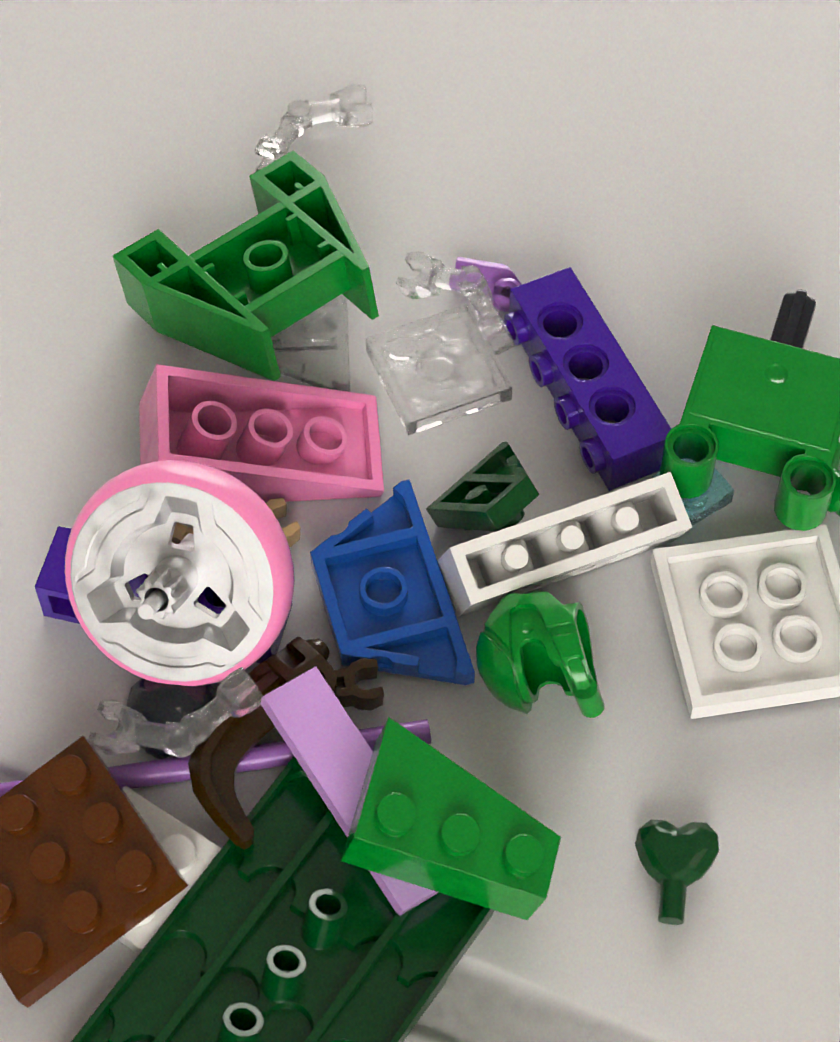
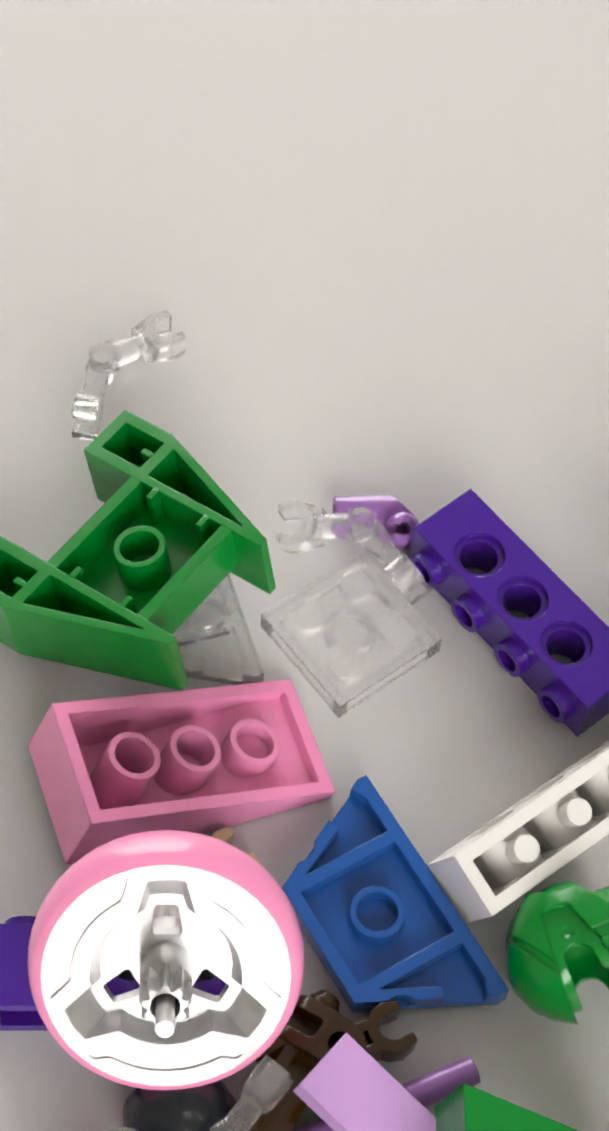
camera: 20 degrees left, 0 degrees up
(487, 495) = (460, 775): dark green wing -> none

